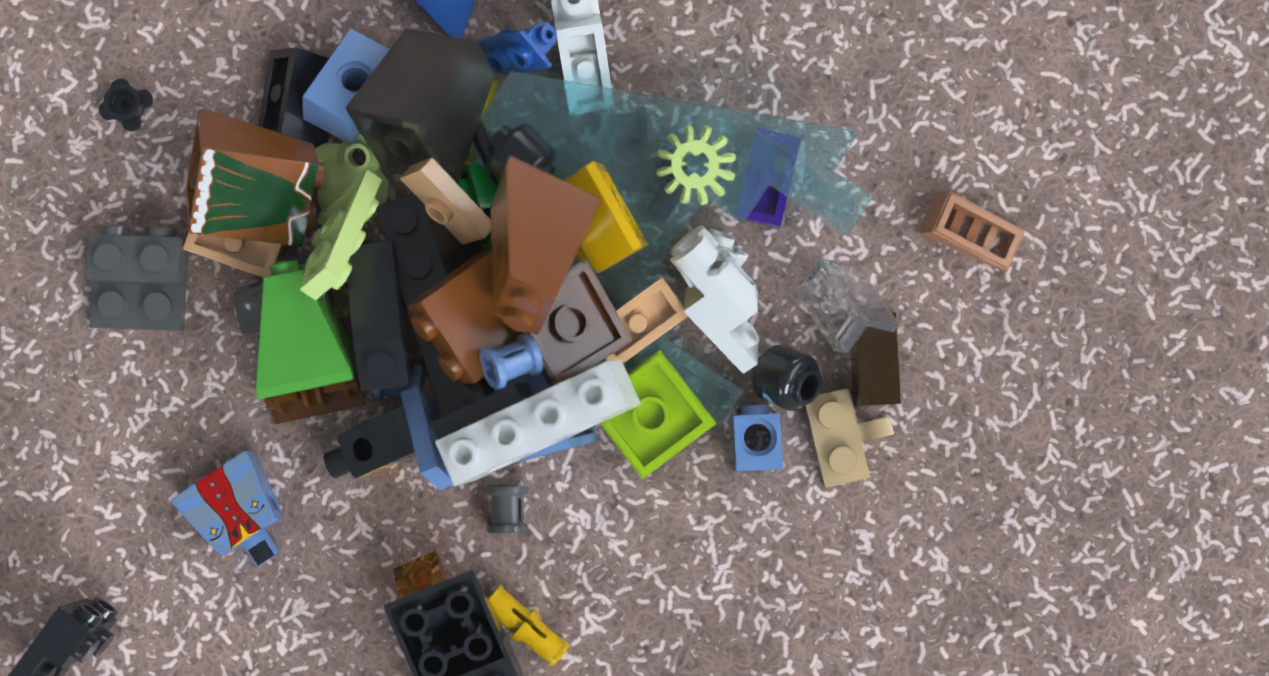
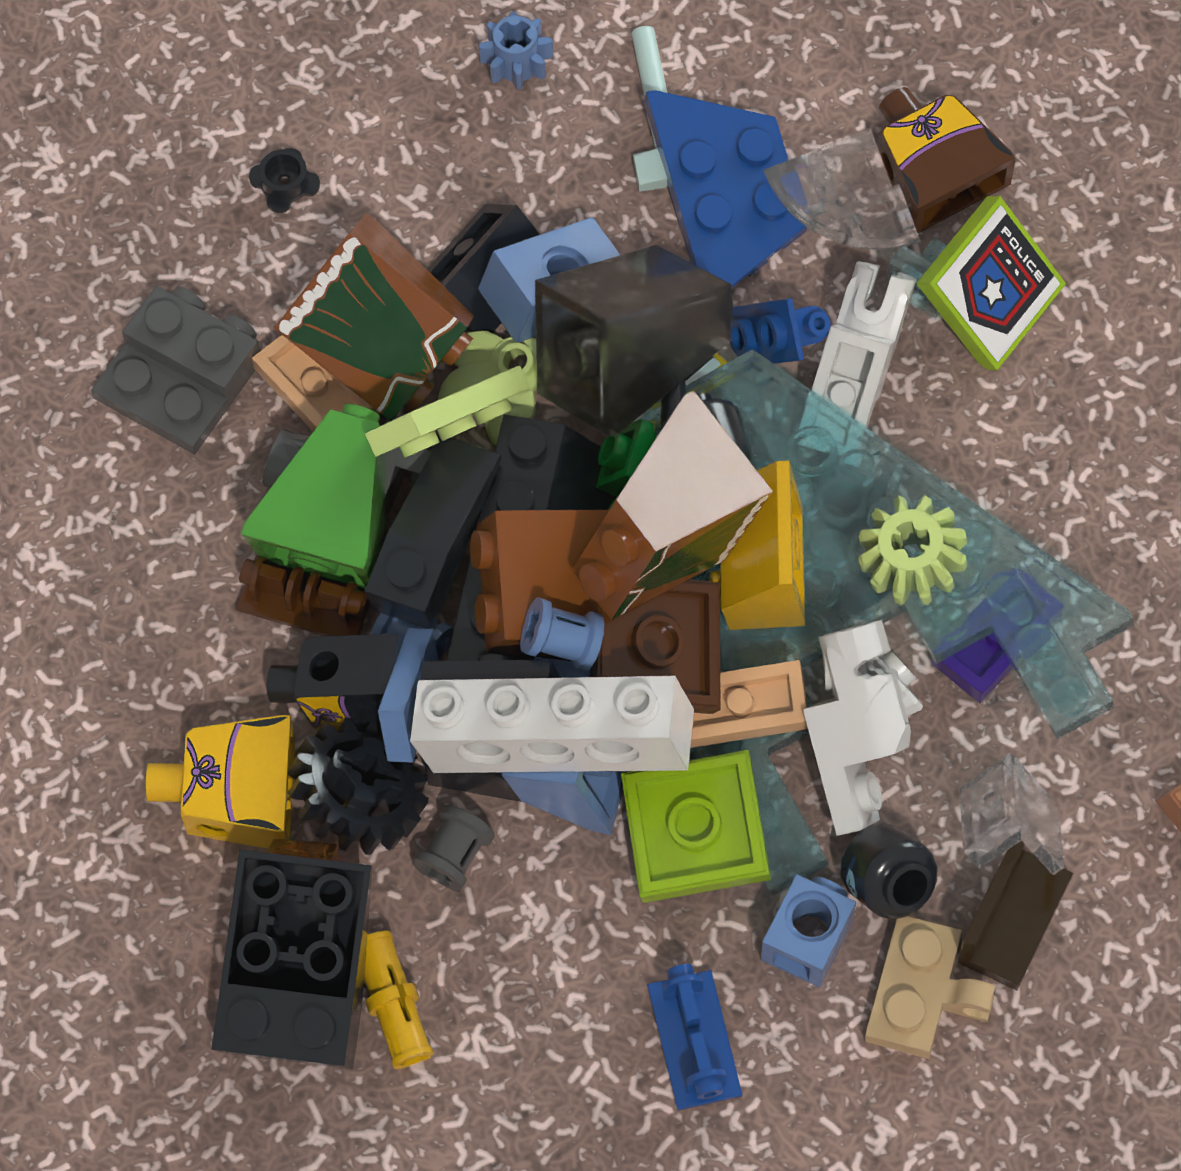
camera: 35 degrees right, 20 degrees down
(234, 508) = (130, 671): torso -> none
(344, 544) = (232, 781): none -> yellow torso
(416, 522) = (355, 788): none -> black gear
(446, 201) = (590, 444): light nougat plate -> none
(723, 546) = (694, 1038): none -> blue hinge

